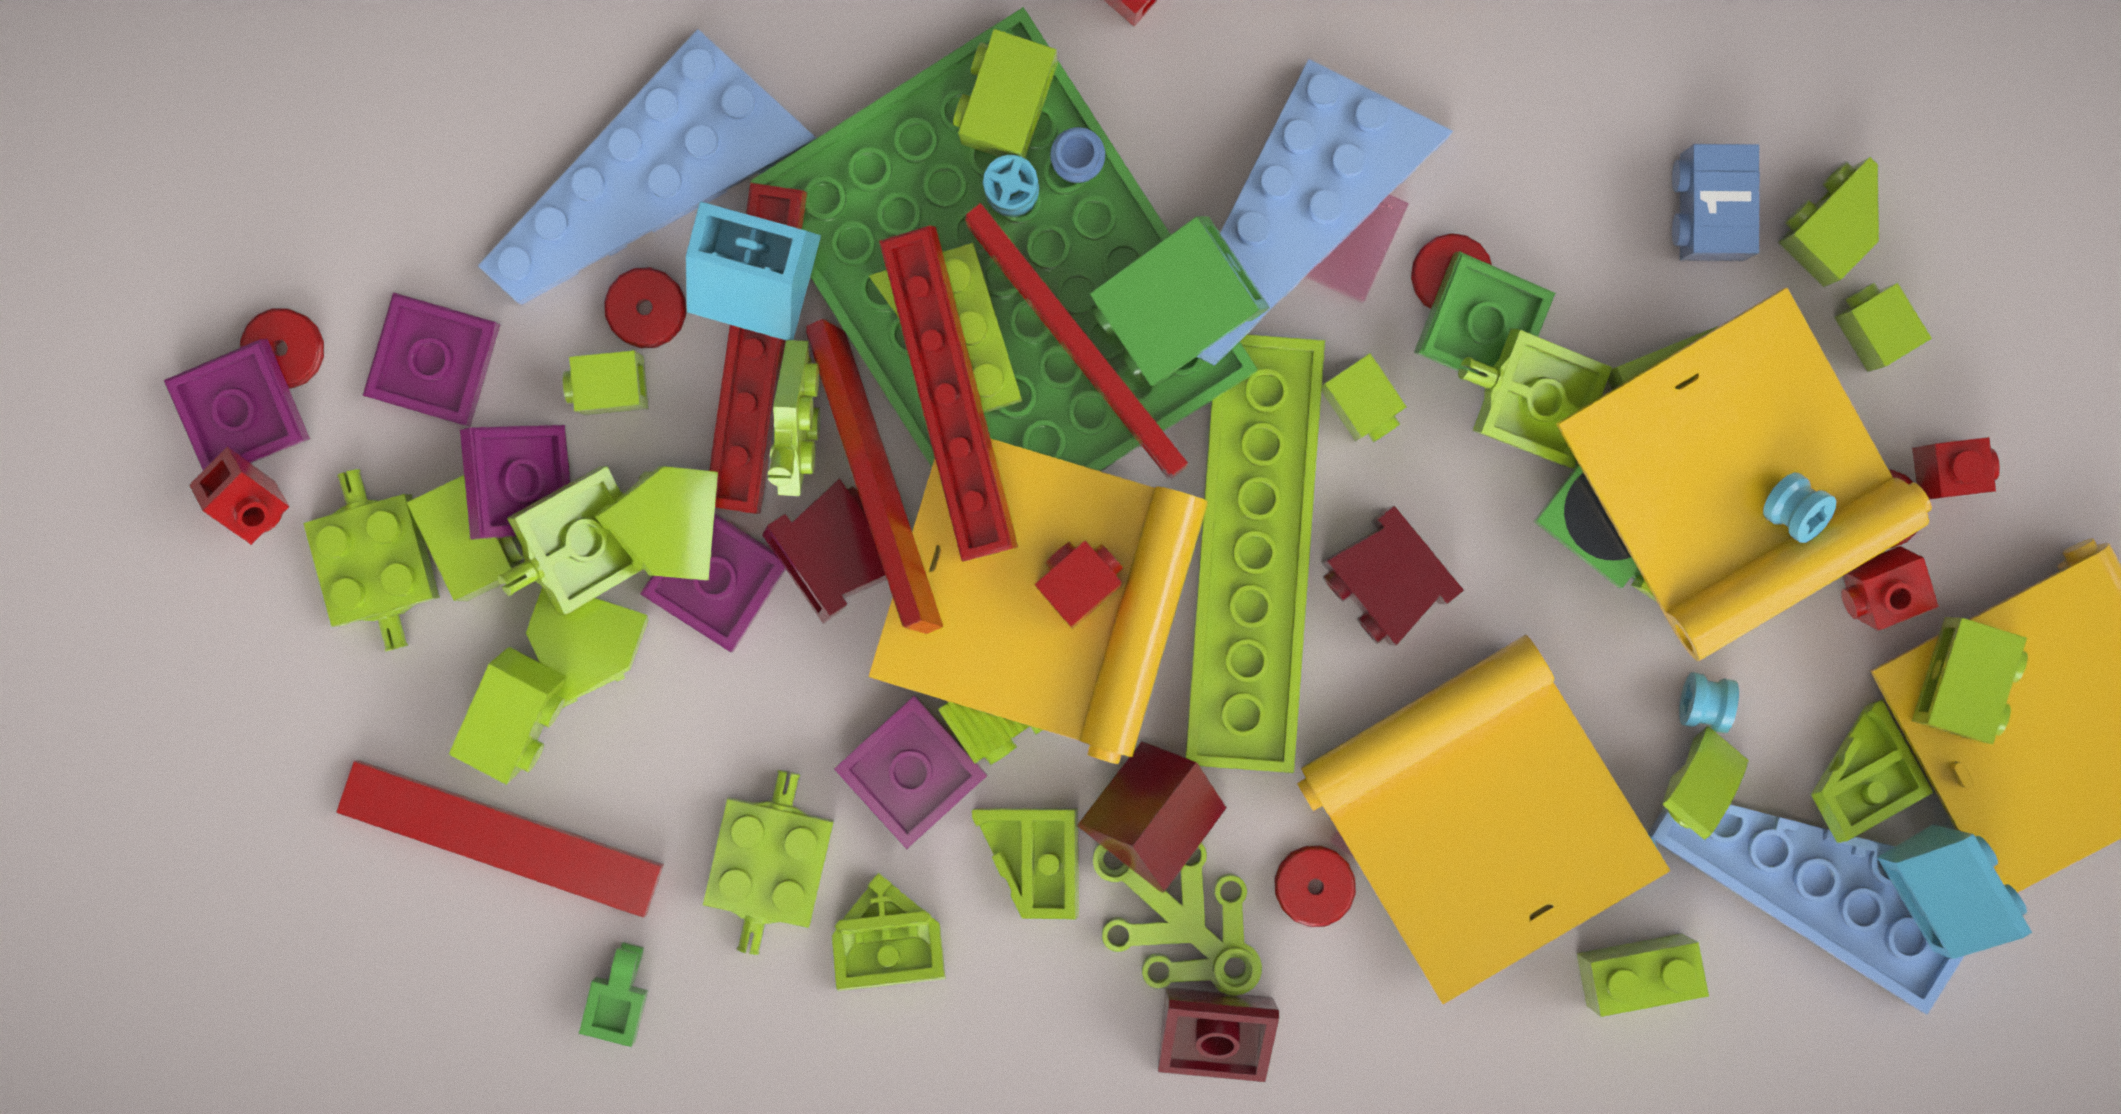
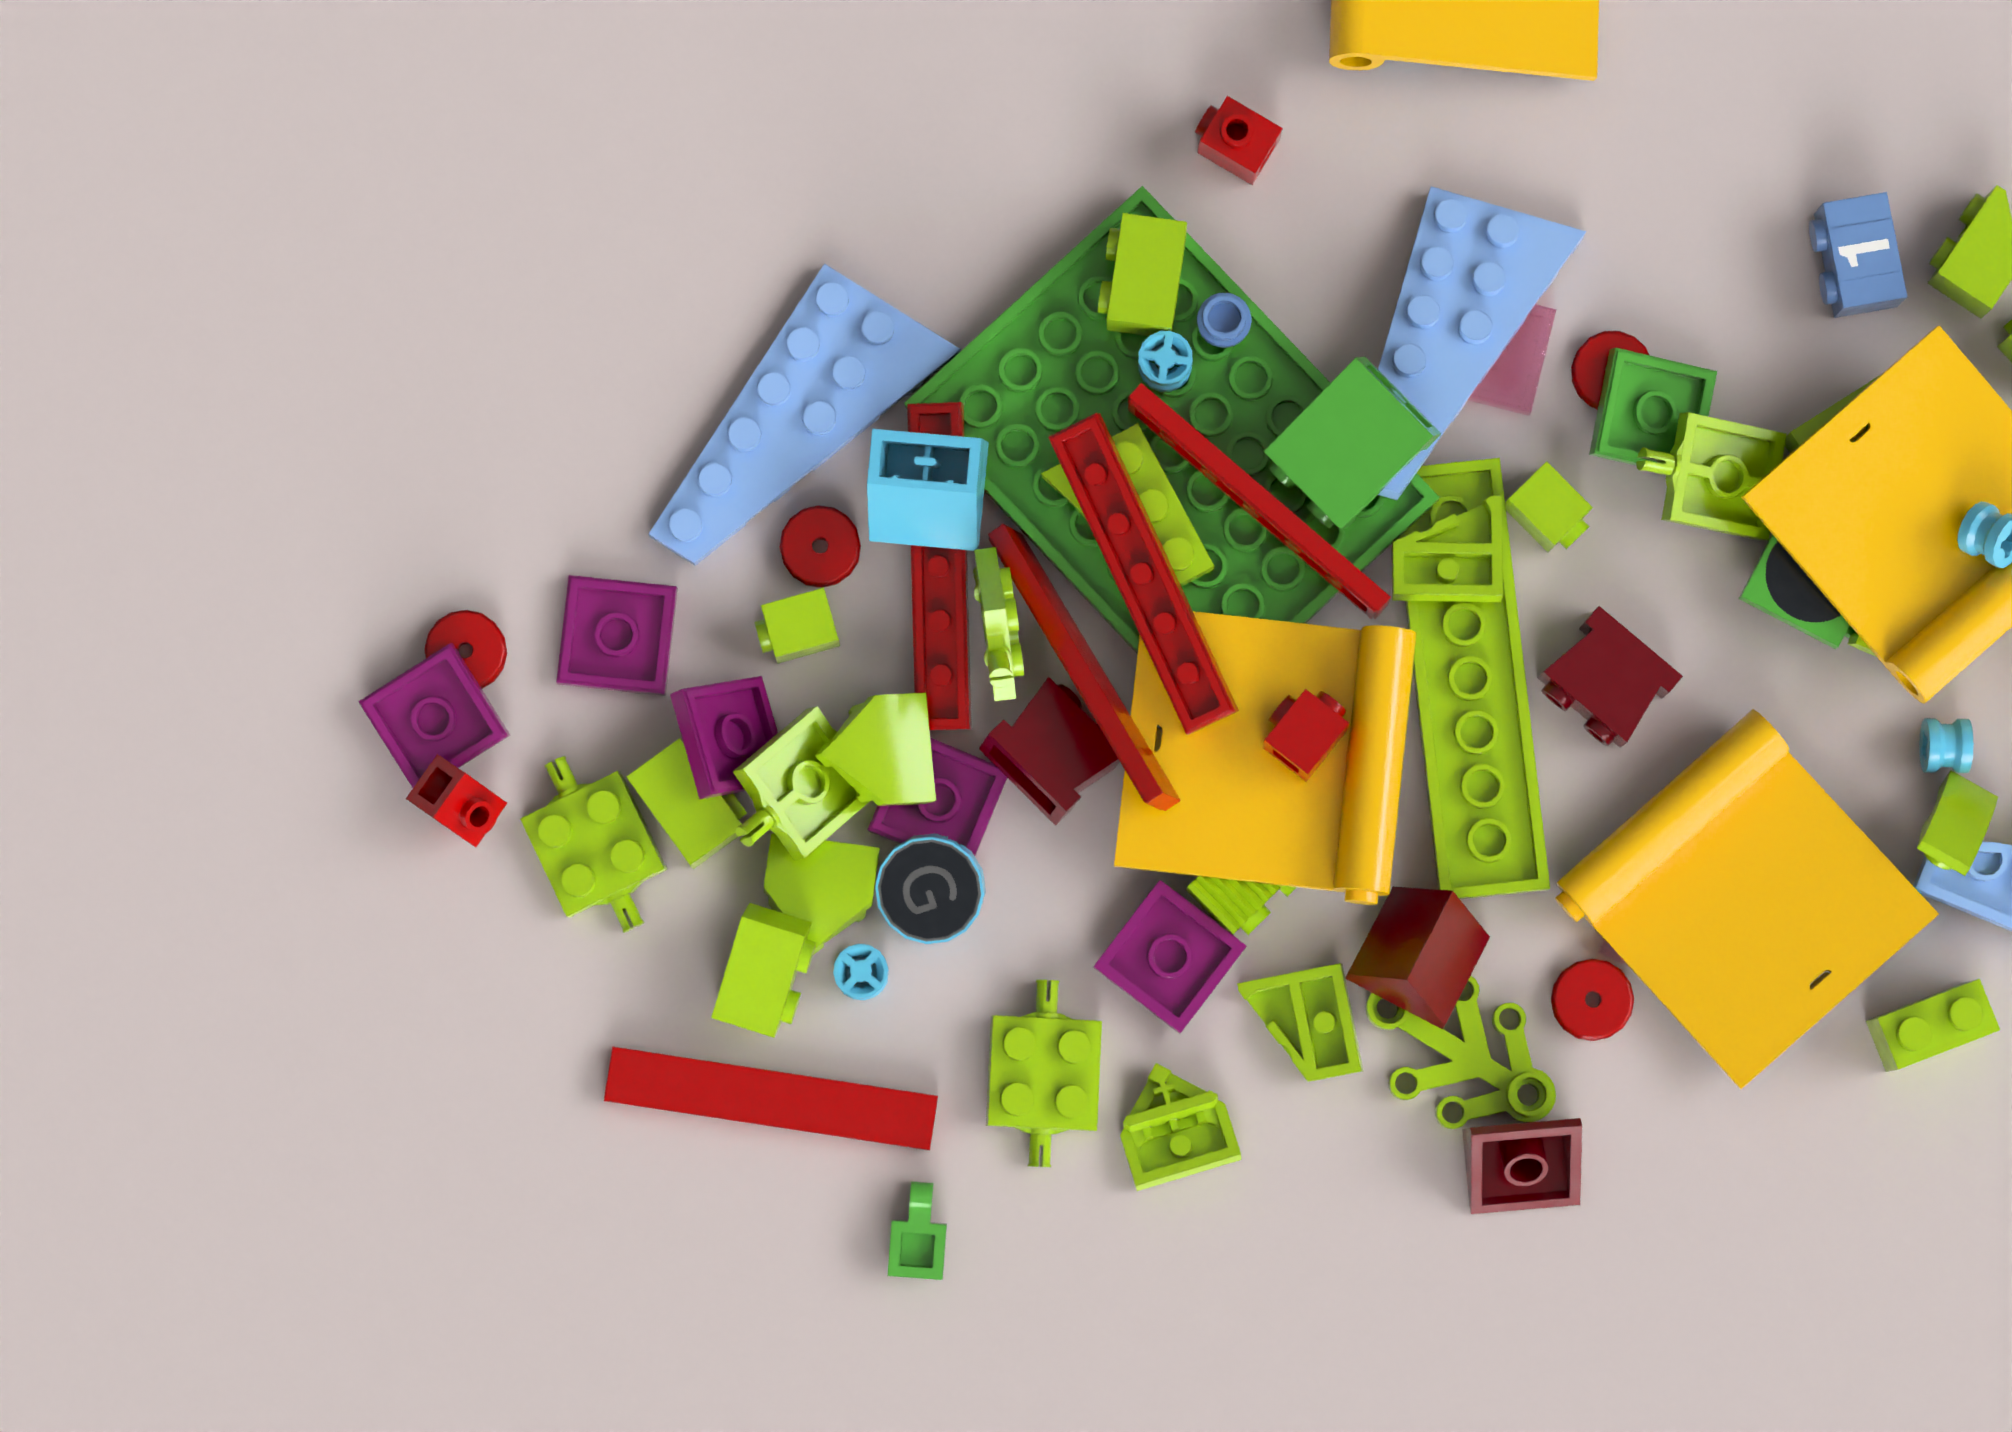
camera: 10 degrees left, 5 degrees down
(599, 739) = (860, 961): none -> medium azure wheel
(689, 663) = (930, 888): none -> black tile
(1260, 433) = (1453, 559): none -> lime wing

